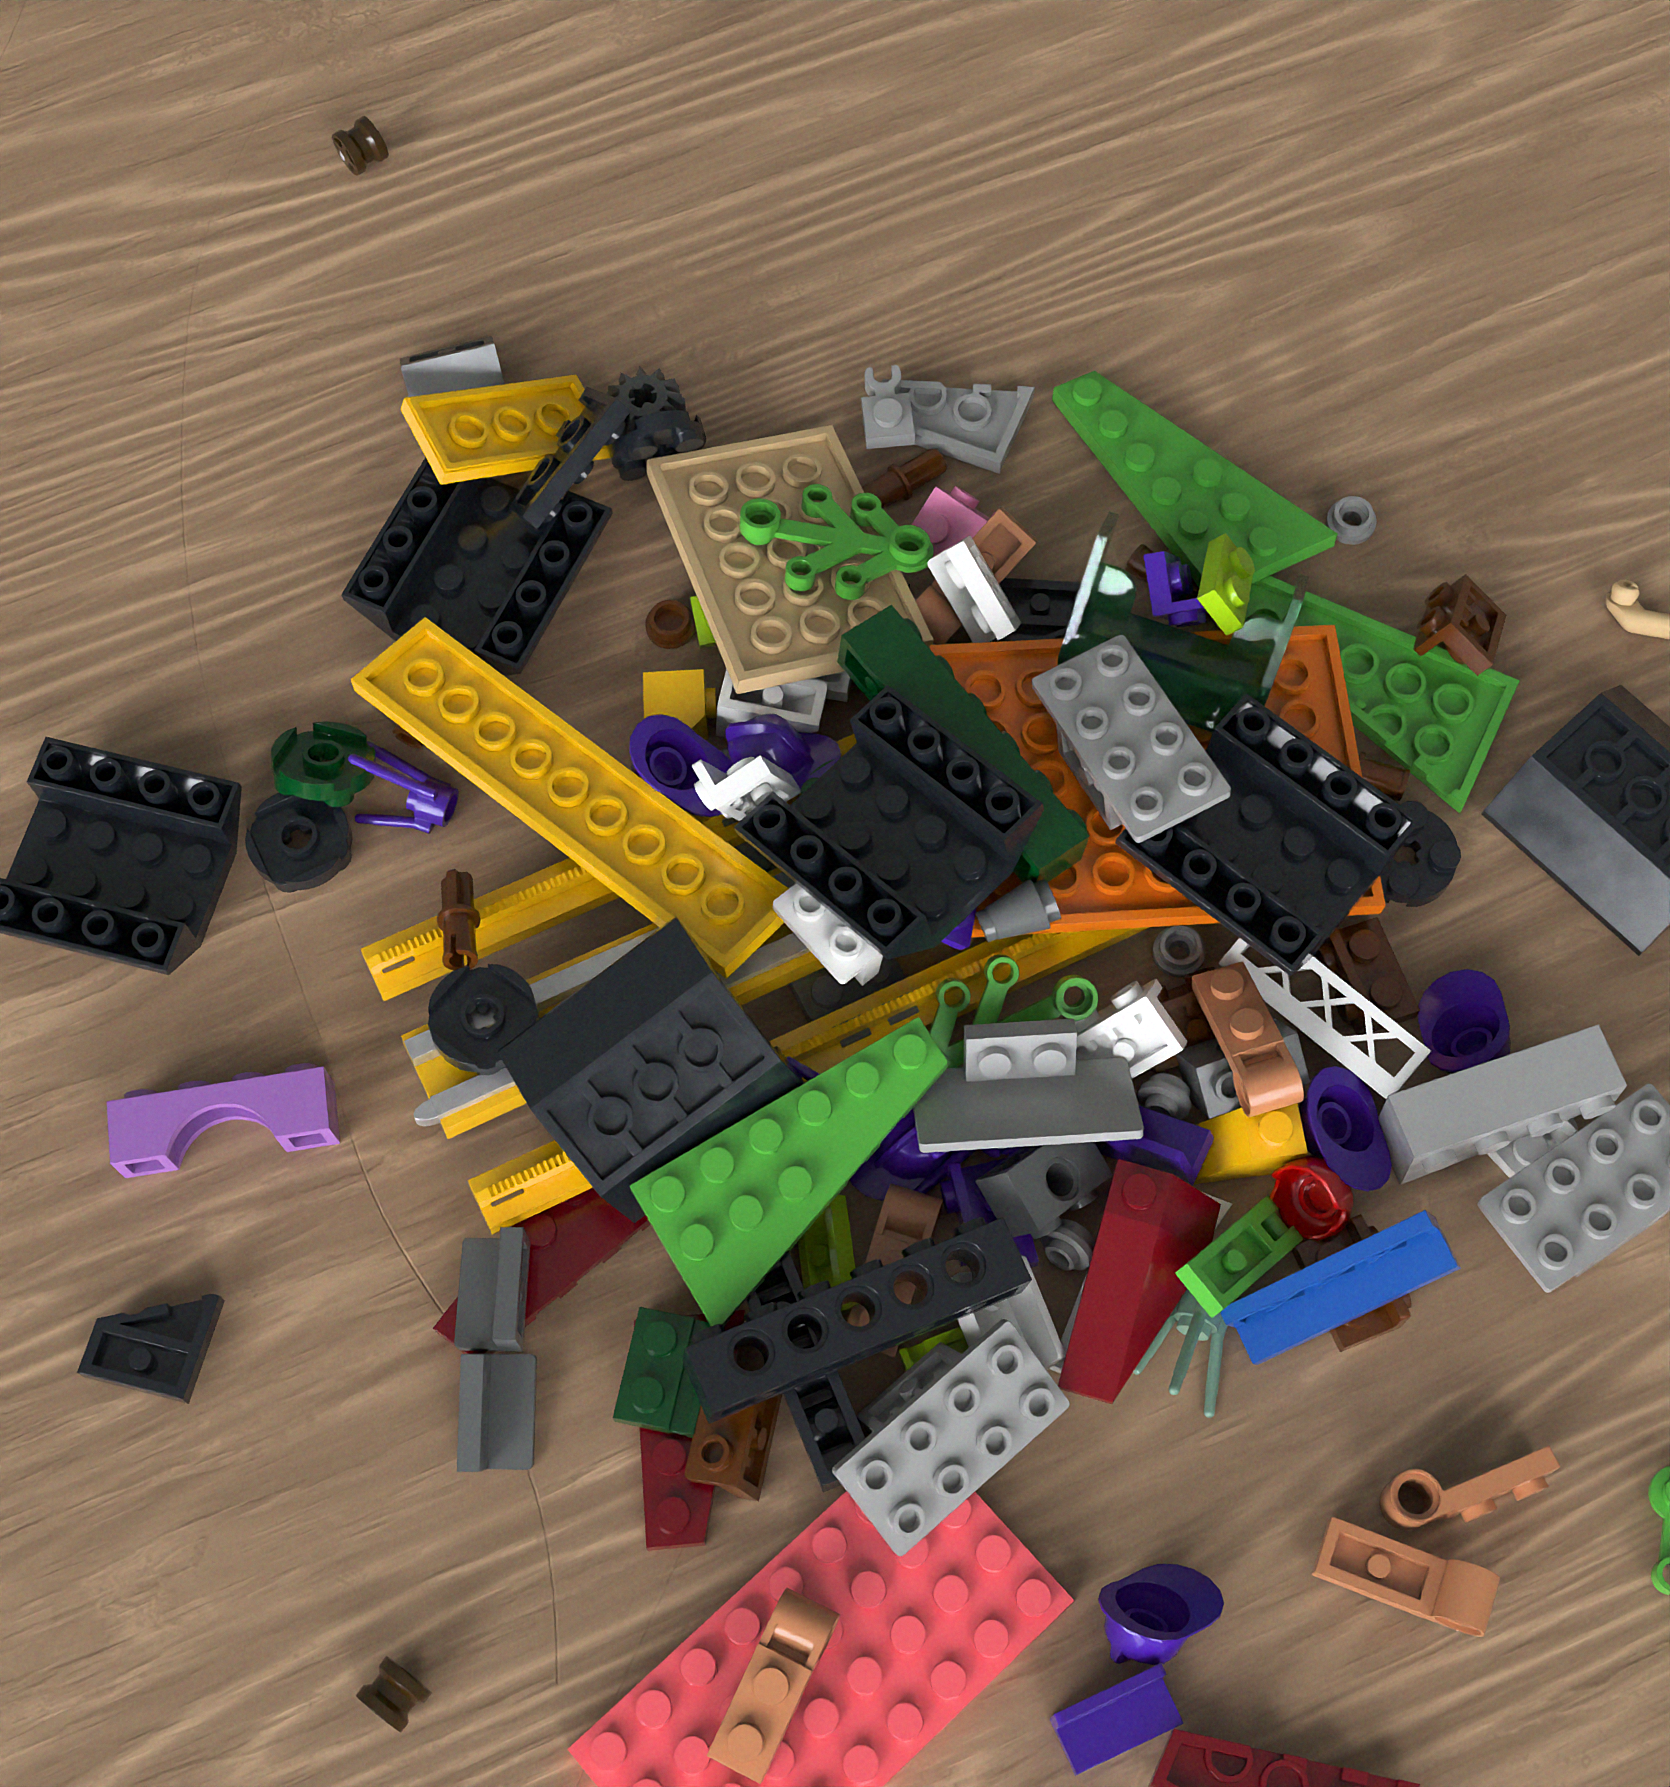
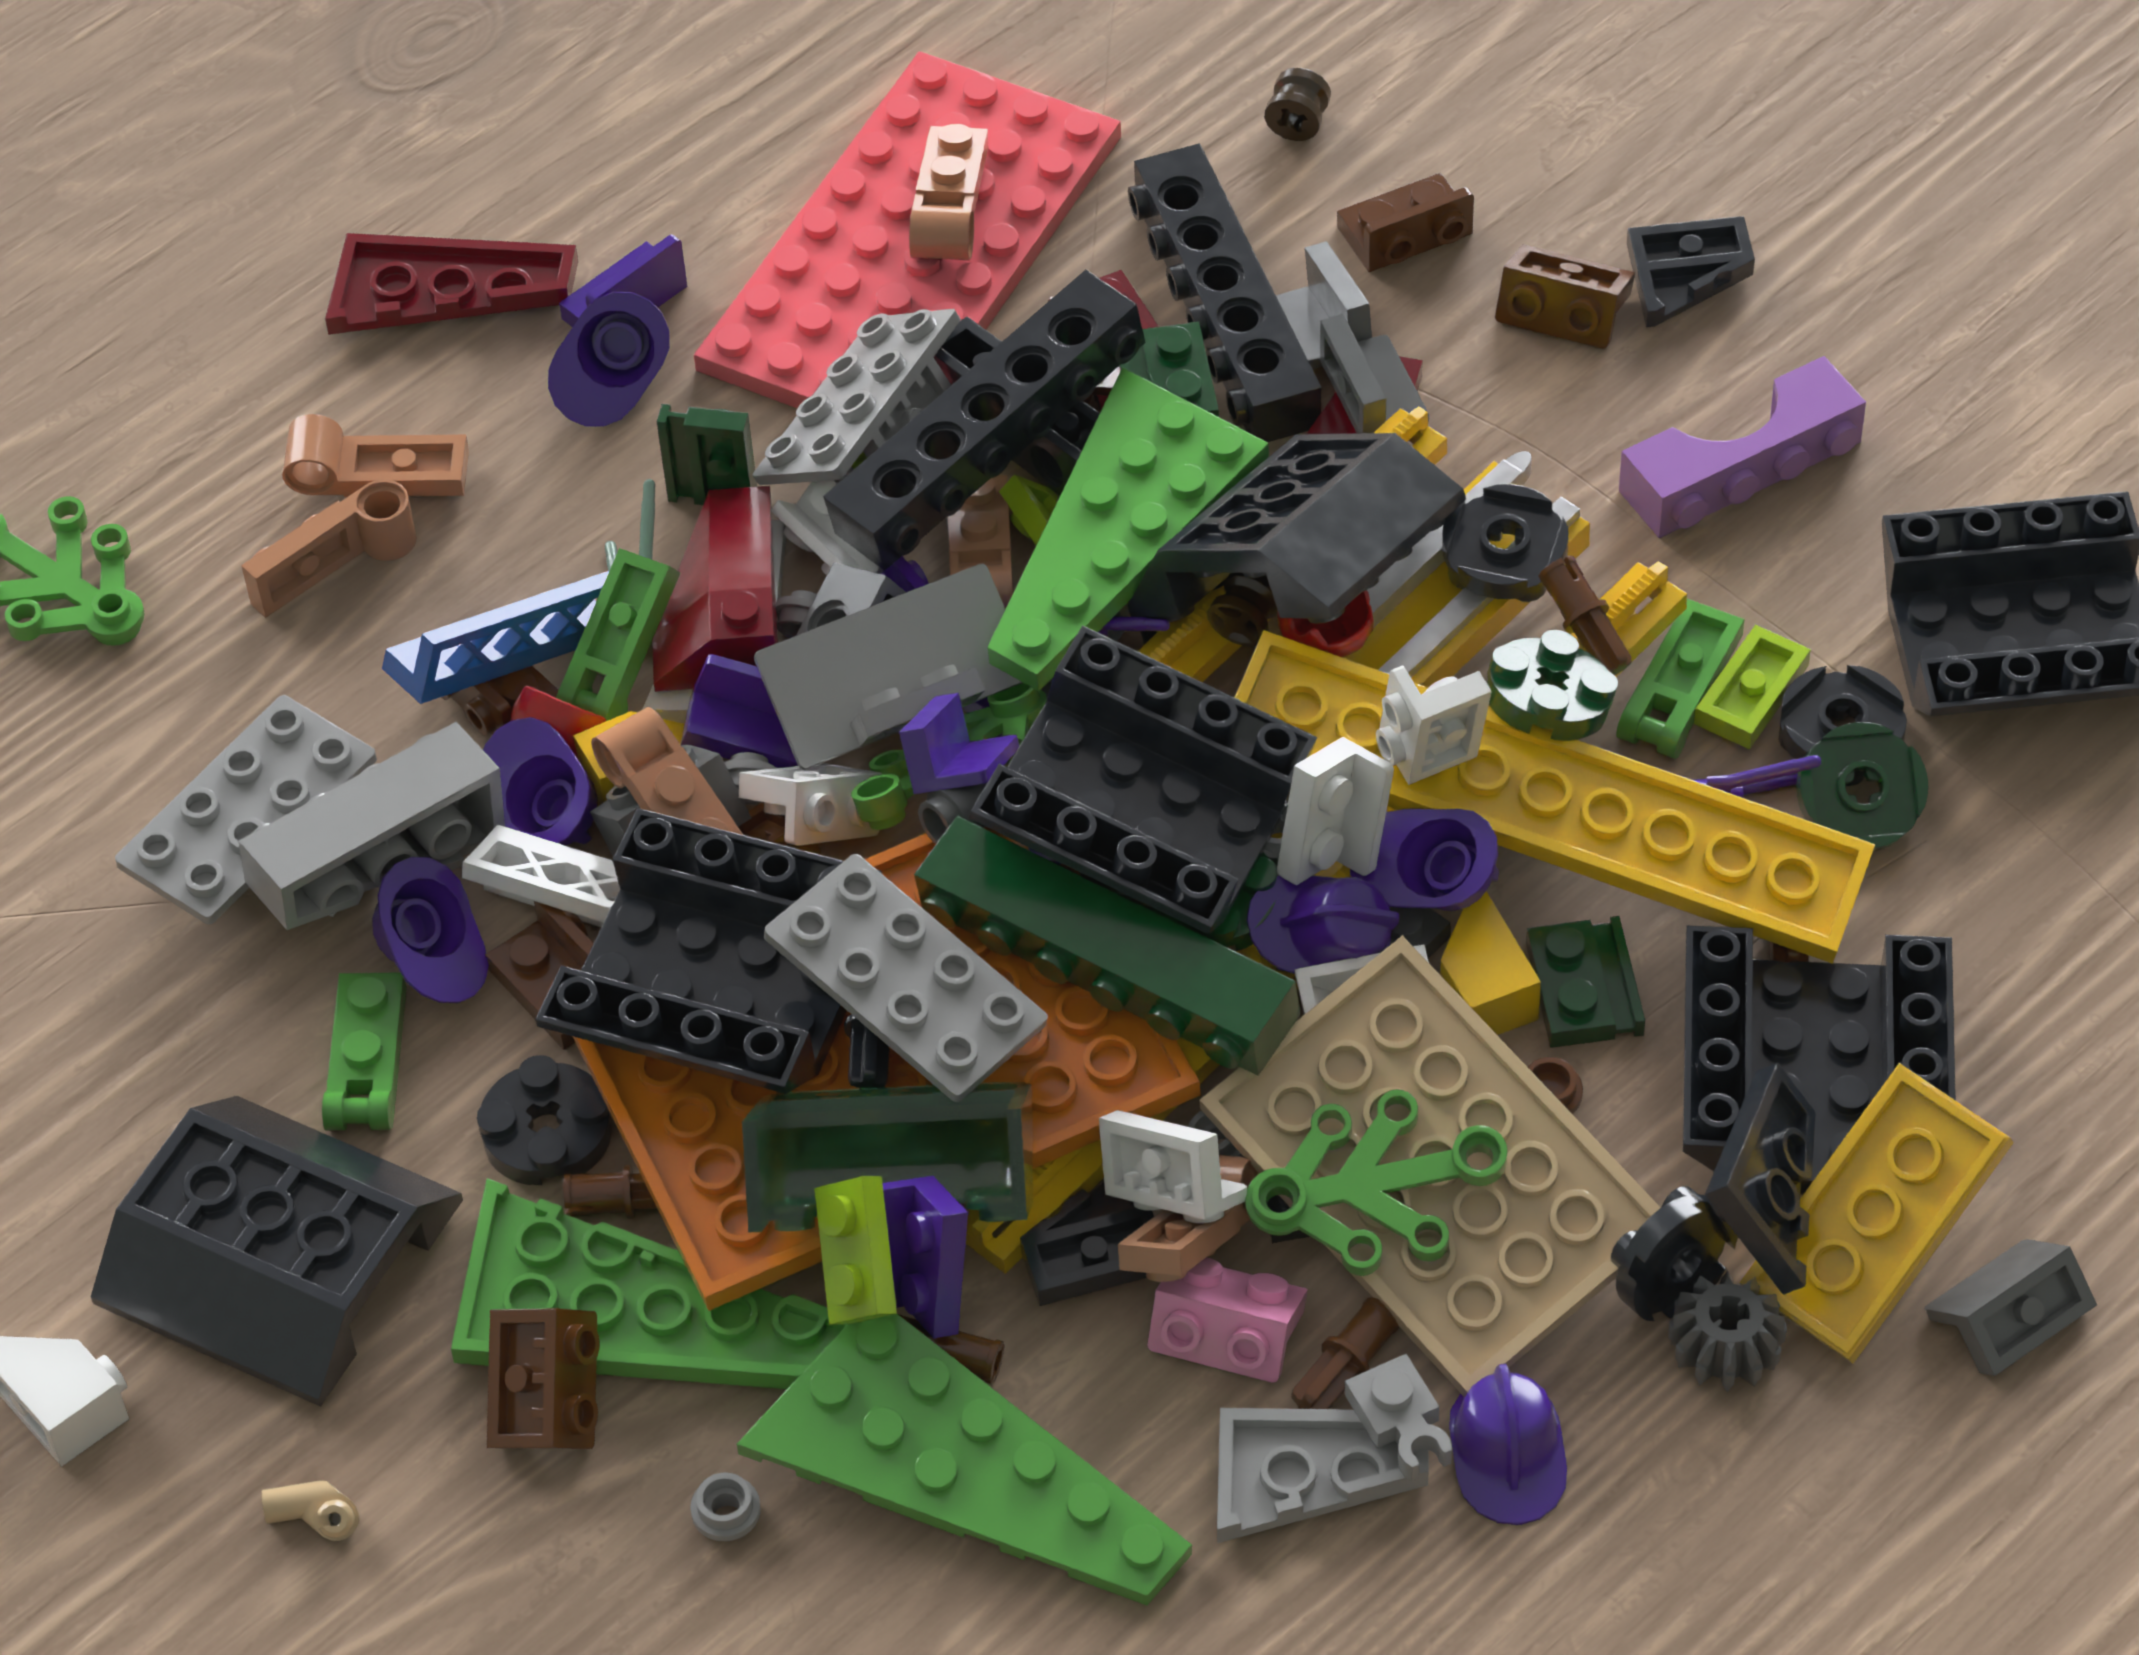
camera: 160 degrees right, 15 degrees down
(272, 1357) = (1562, 295): none -> reddish brown bracket
(347, 894) = (1751, 686): none -> lime plate
(364, 1507) = (1407, 221): none -> reddish brown bracket
(388, 916) = (1680, 677): none -> bright green plate
(495, 846) = (1550, 686): none -> plate
(563, 1327) = (1226, 291): none -> black brick
(604, 699) = (1585, 981): none -> dark green plate
(639, 800) = (1431, 728): none -> white bracket
(820, 394) = (1508, 1448): none -> dark purple piece
(1010, 953) = (941, 752): none -> dark purple panel
(1102, 1428) = (704, 451): none -> dark green plate
(1534, 962) = (365, 1051): none -> bright green plate

